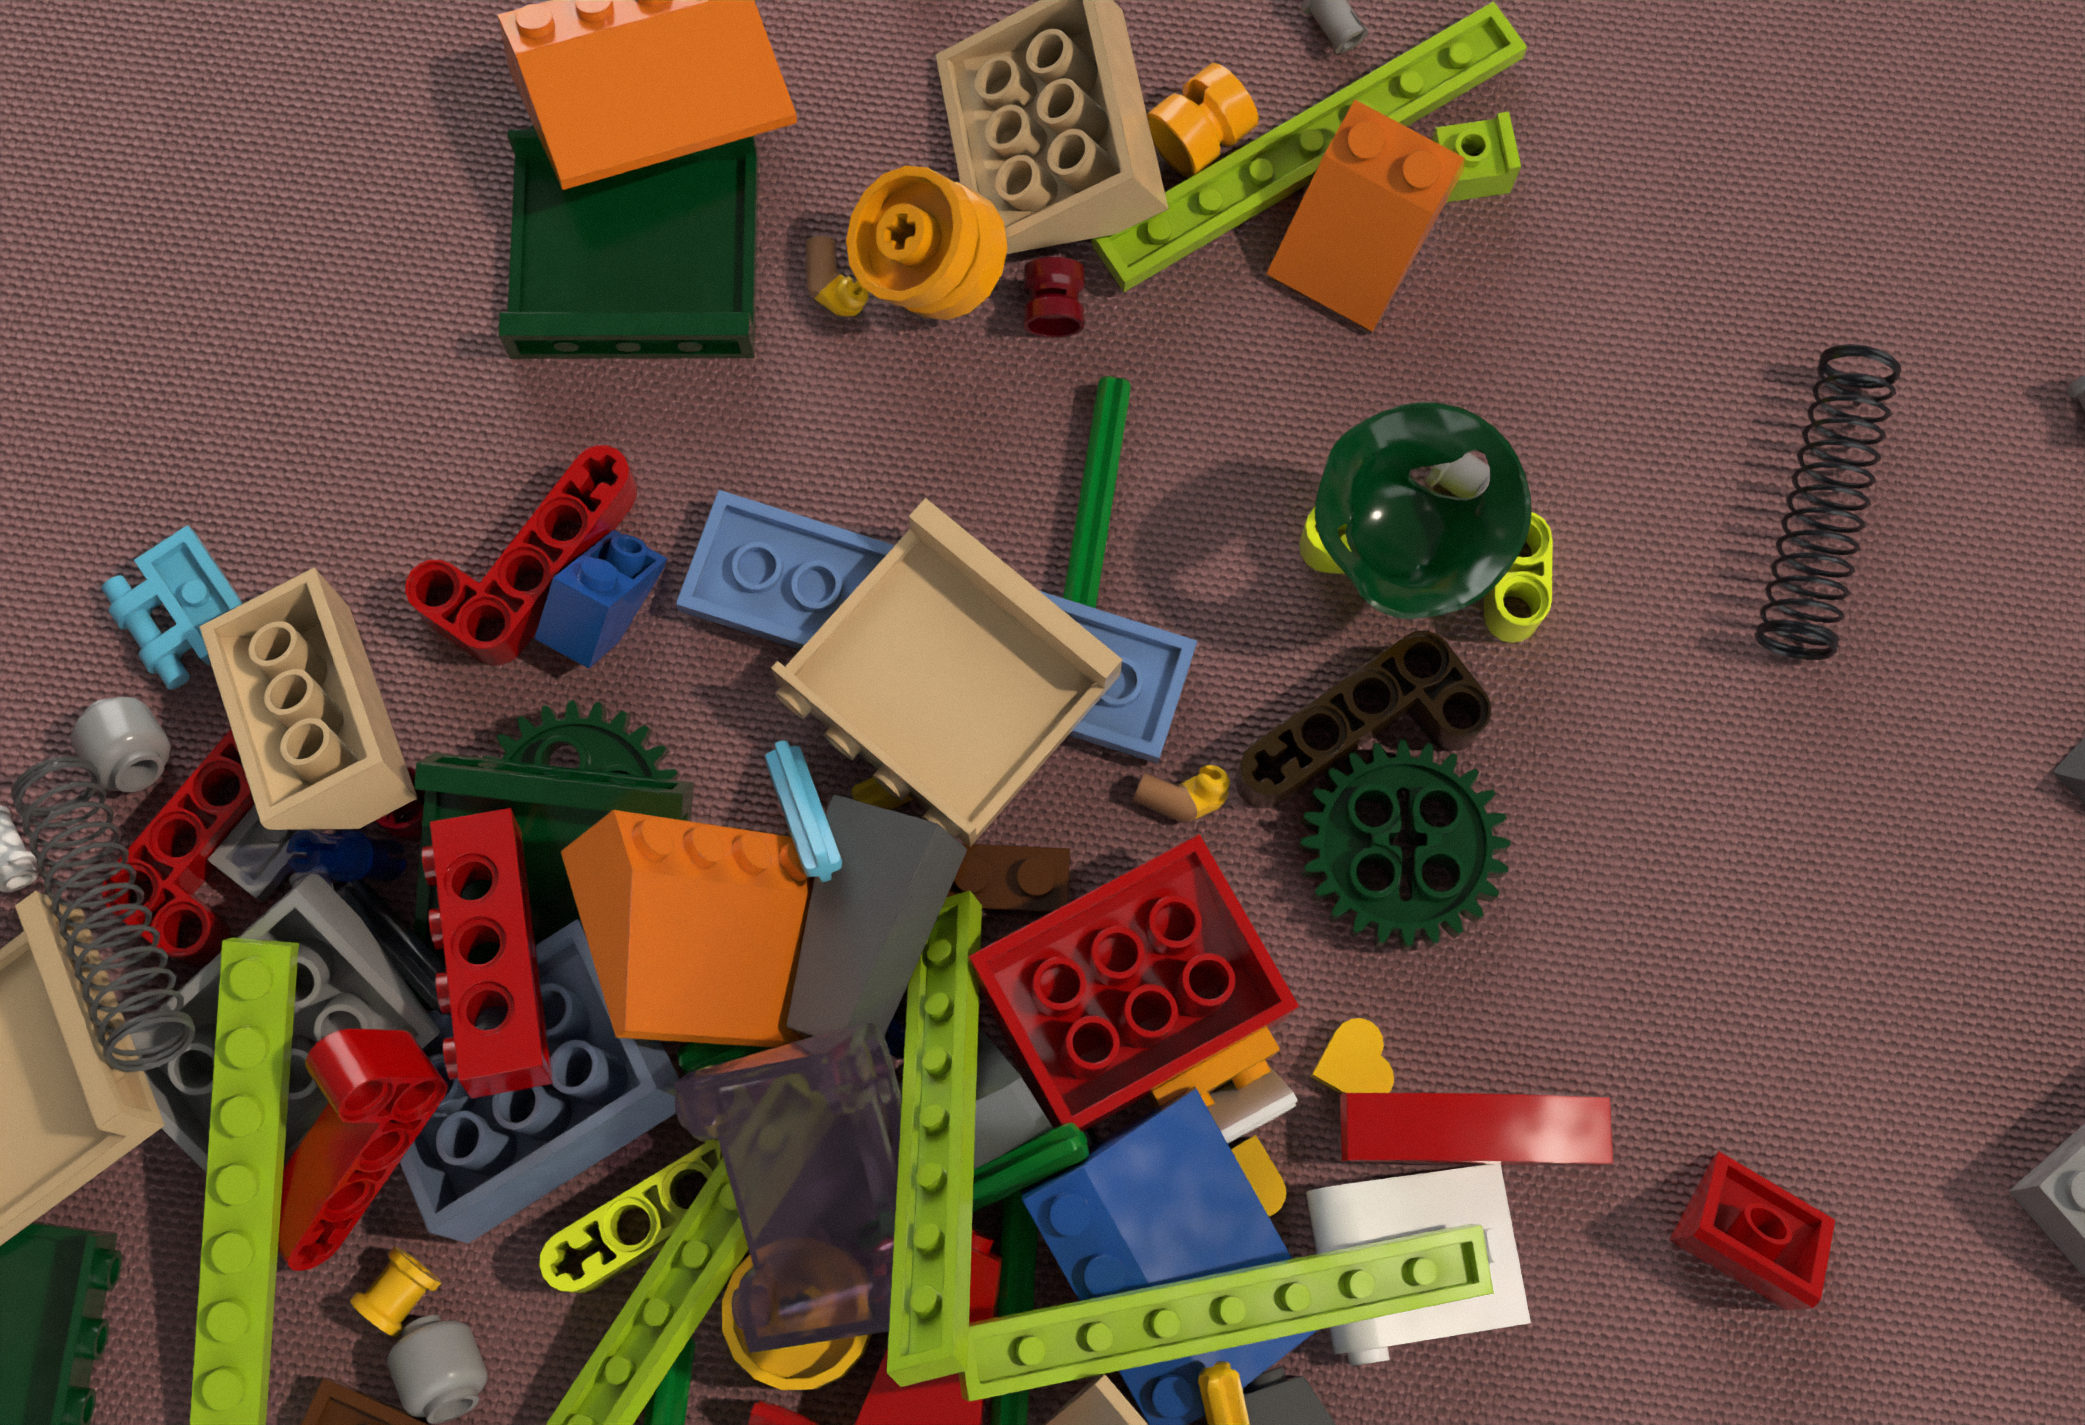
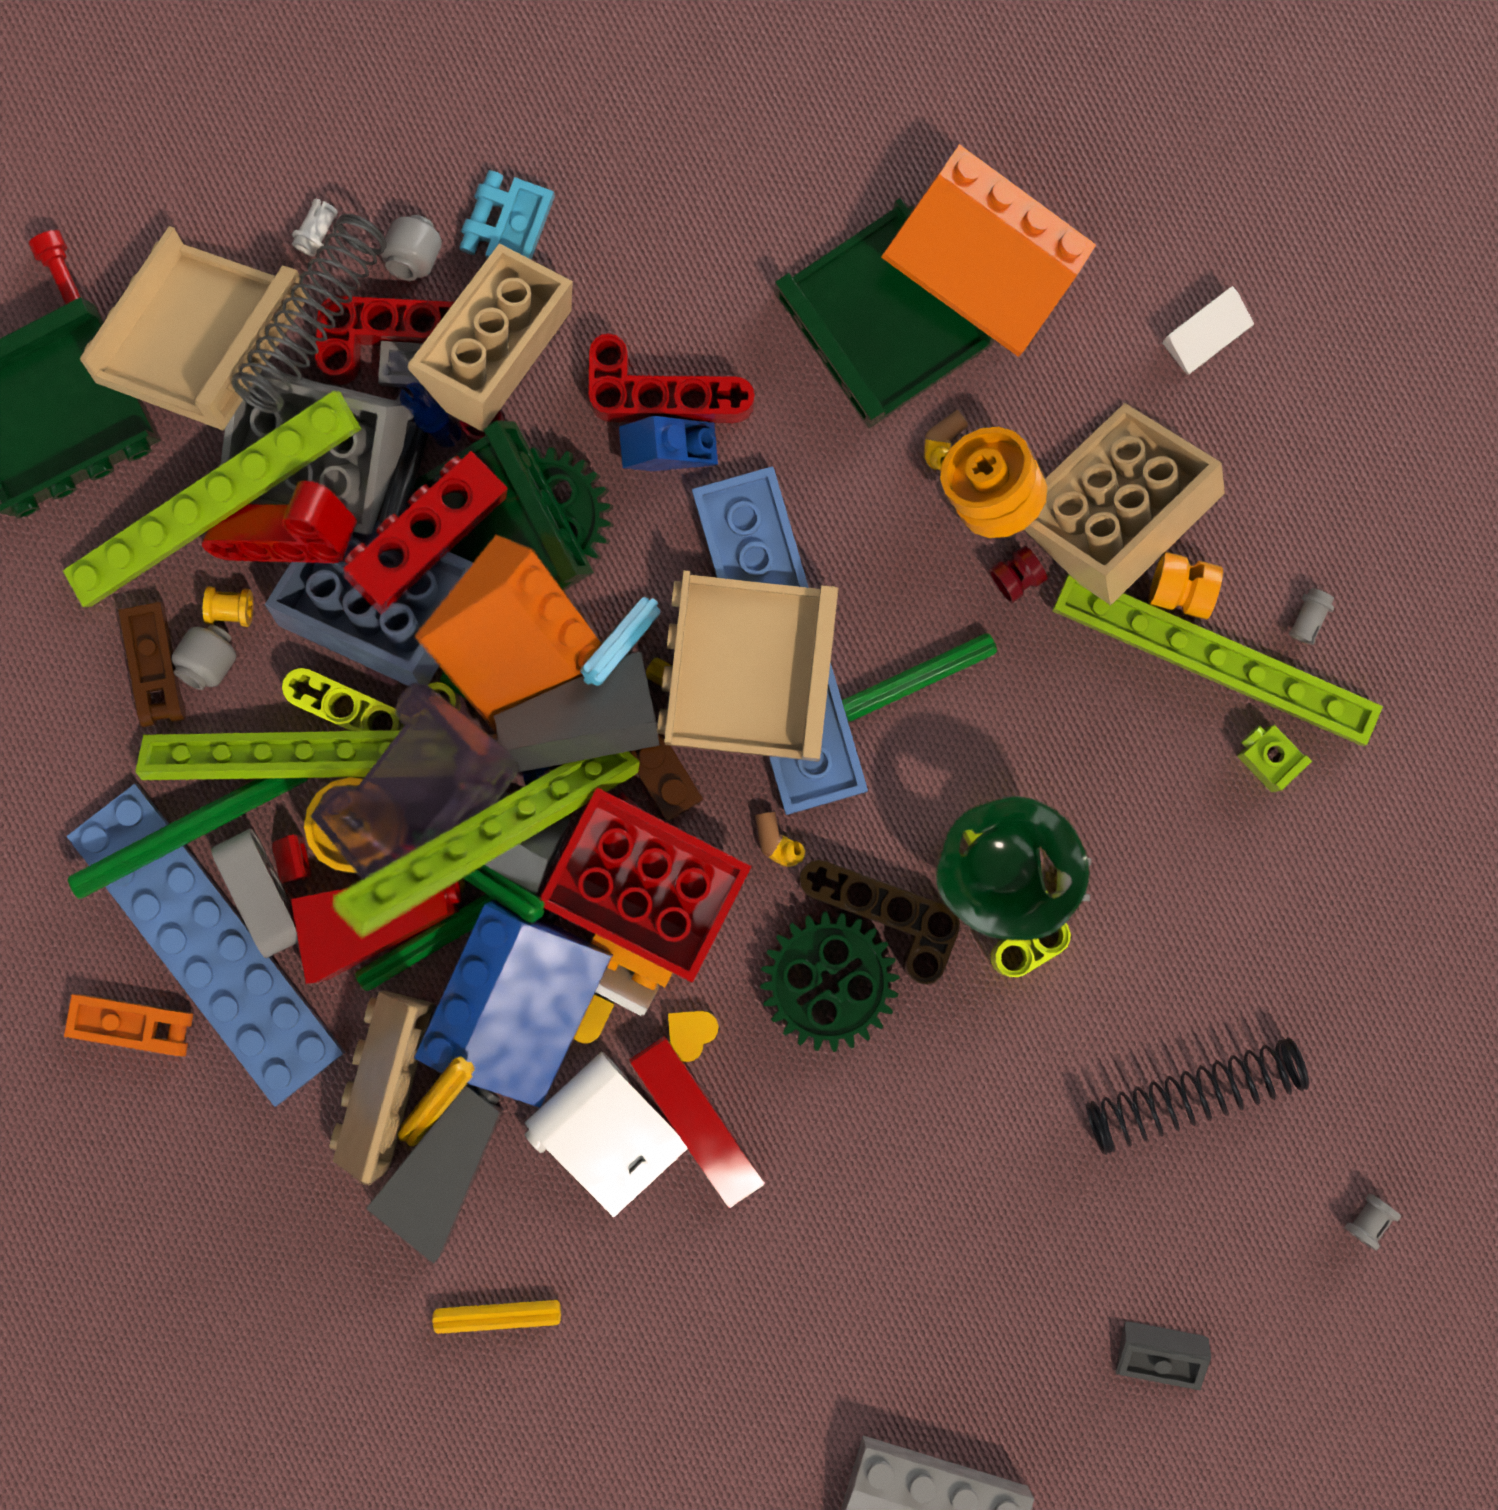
camera: 50 degrees right, 10 degrees up
(1223, 1311) = (500, 1049): lime plate -> none
(1365, 215) = (1188, 720): orange slope -> none
(1757, 1234) = (744, 1310): red slope -> none

